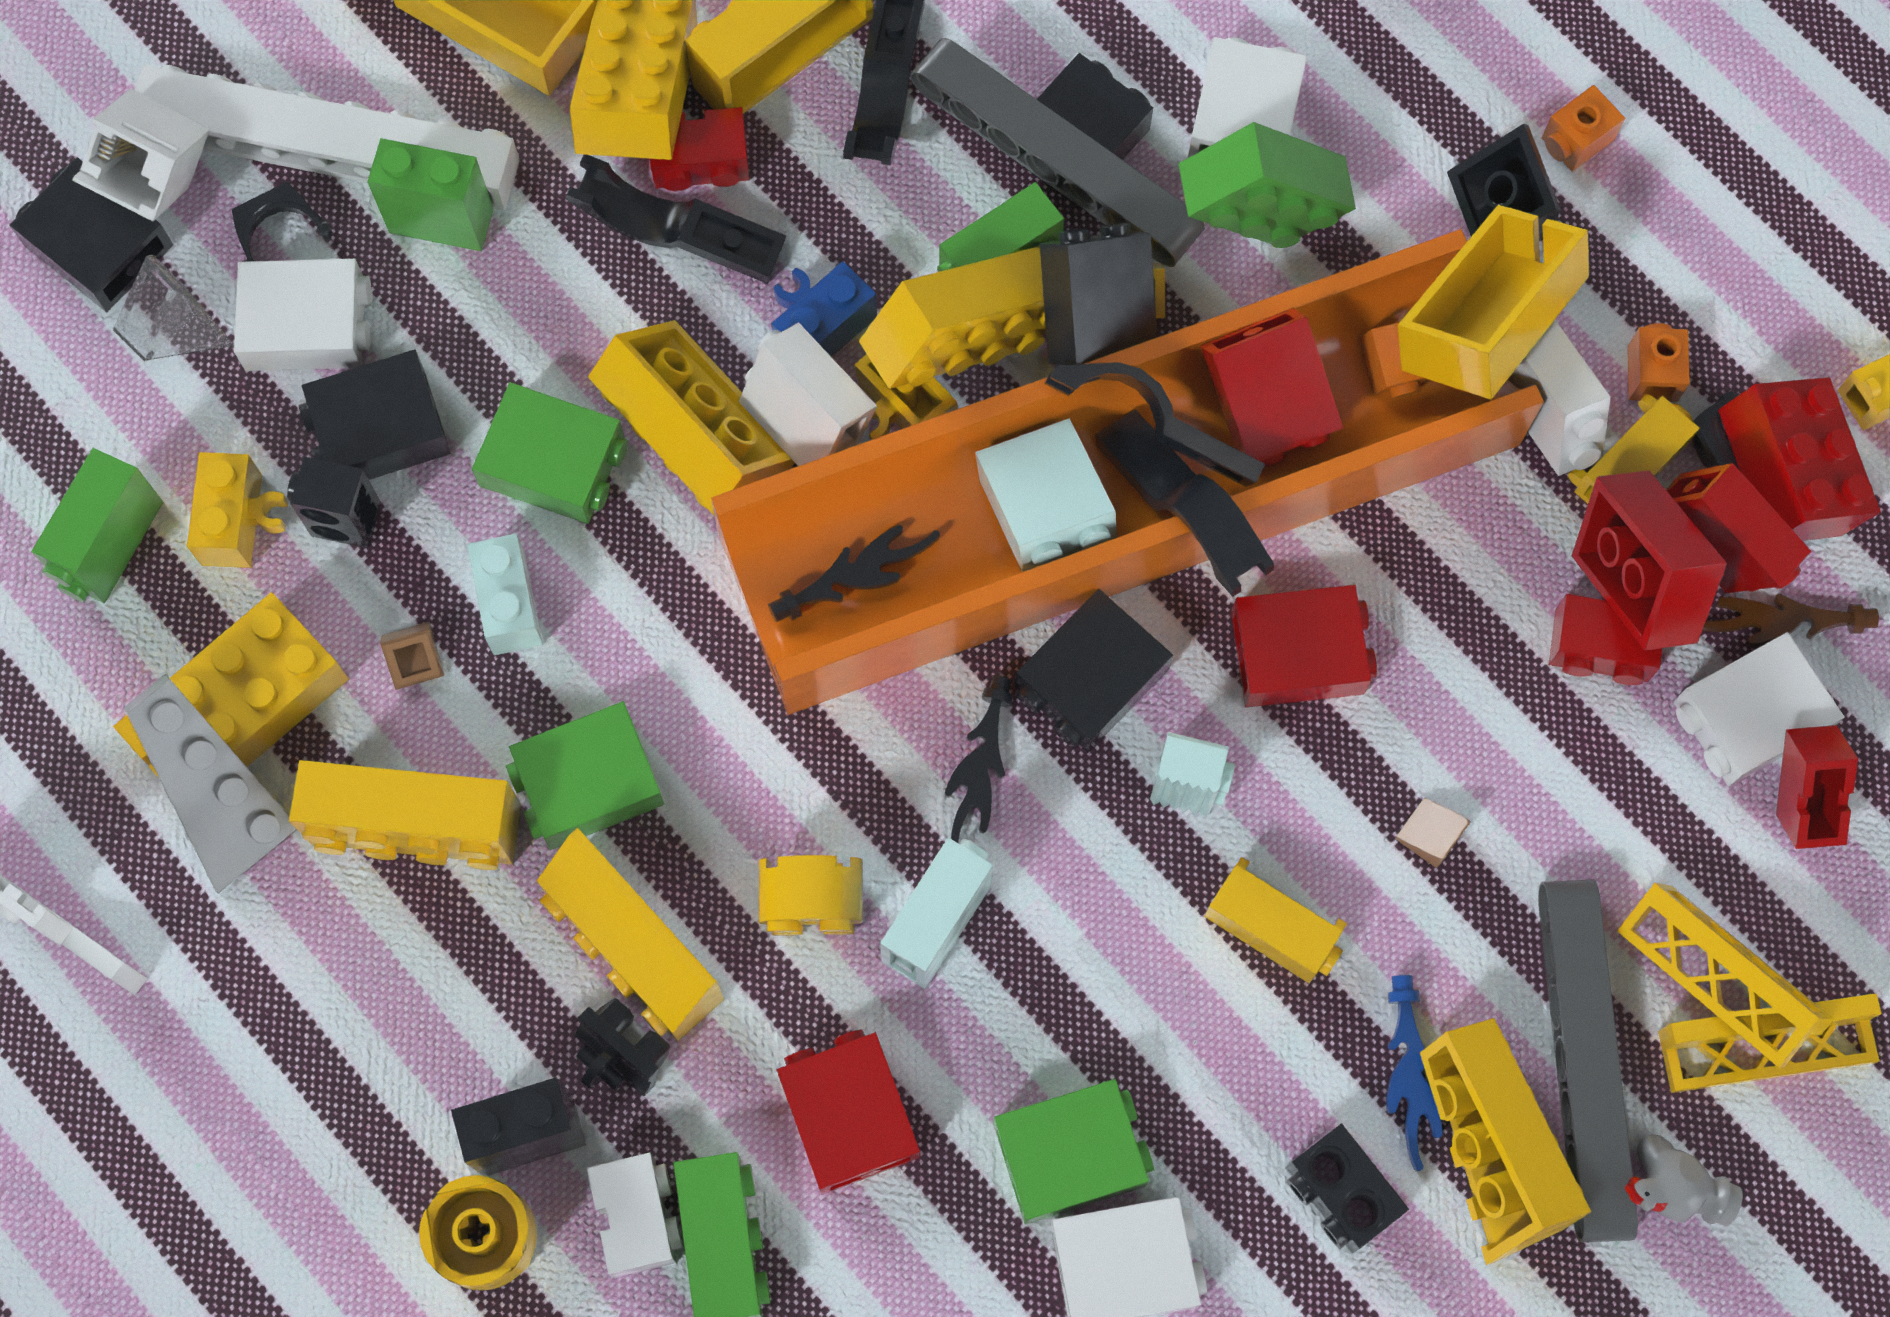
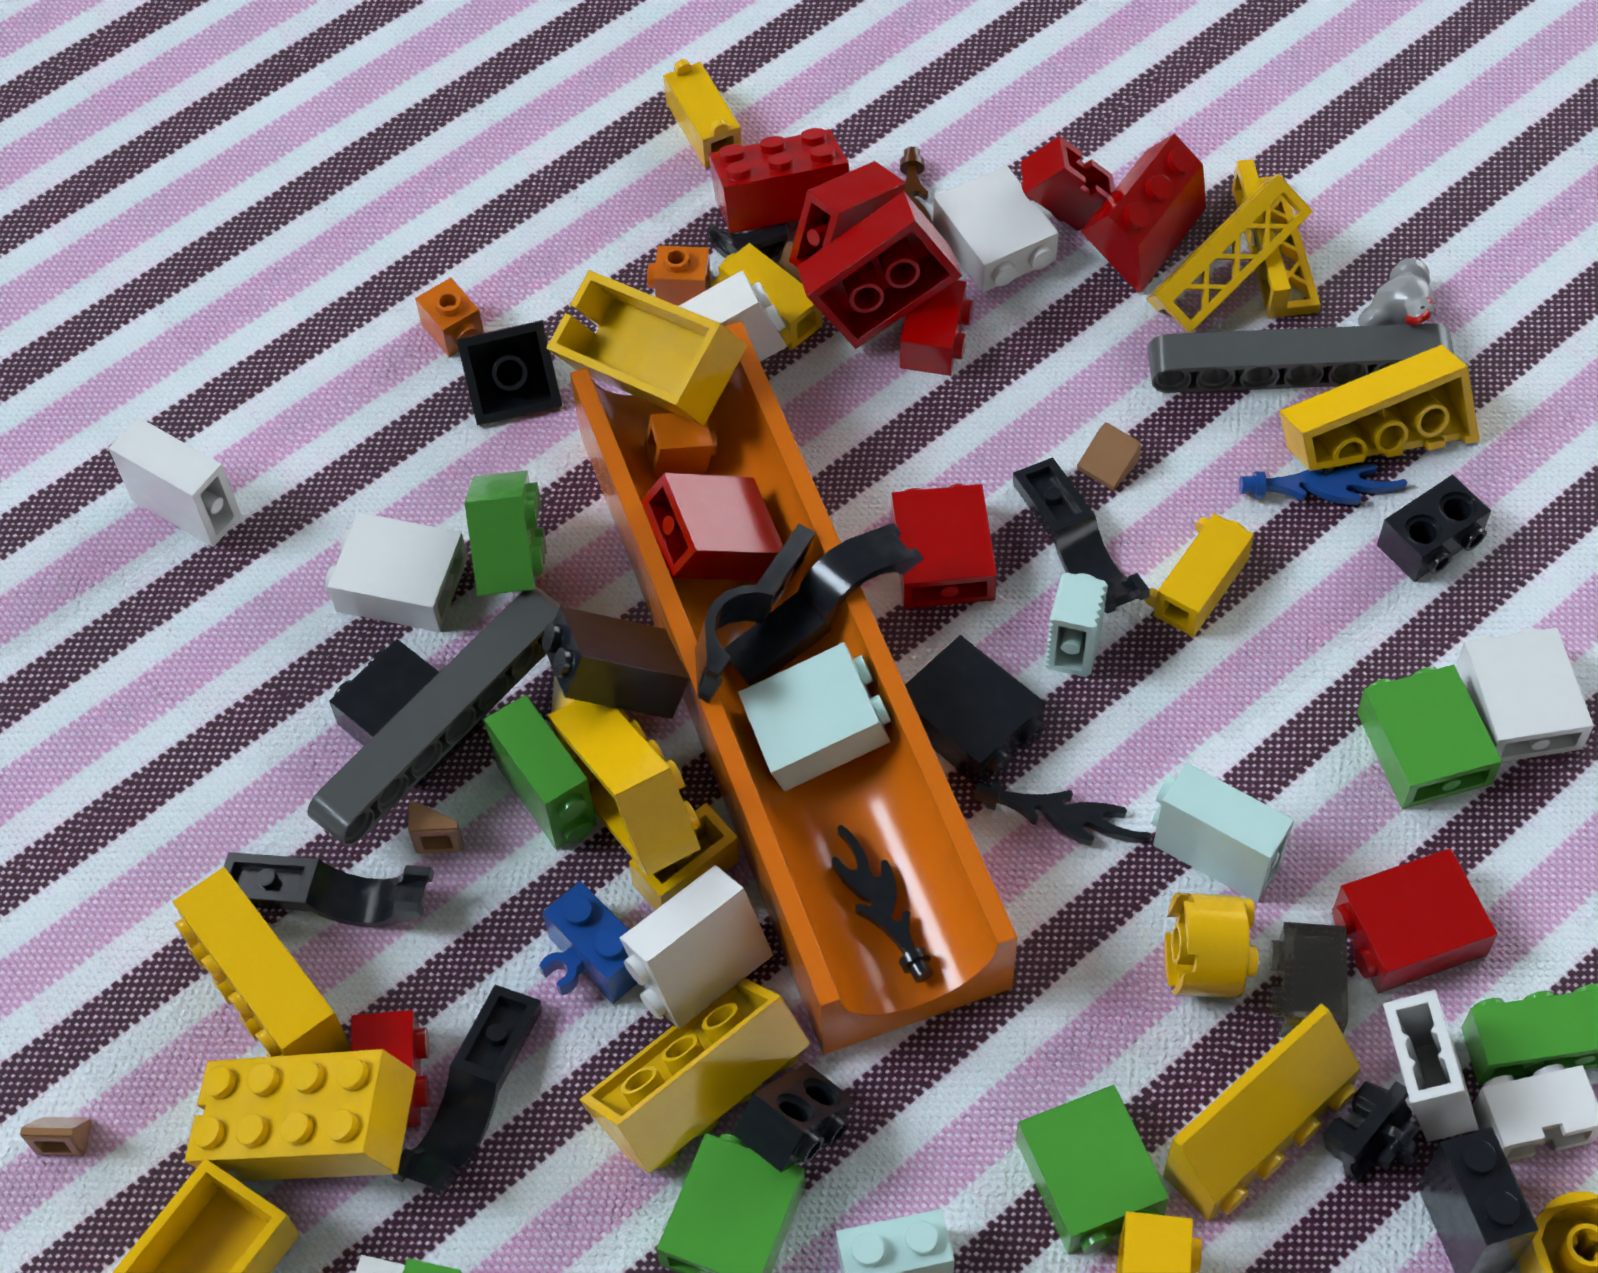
camera: 85 degrees left, 15 degrees down
(636, 490) = (794, 1118): none -> black brick
(663, 1096) = (1430, 1066): none -> white brick
(774, 995) = (1310, 972): none -> clear smoke brick
(949, 160) = (433, 831): none -> medium nougat slope
(1319, 790) = (1074, 530): none -> black piece
(1785, 883) = (1149, 211): none -> red slope

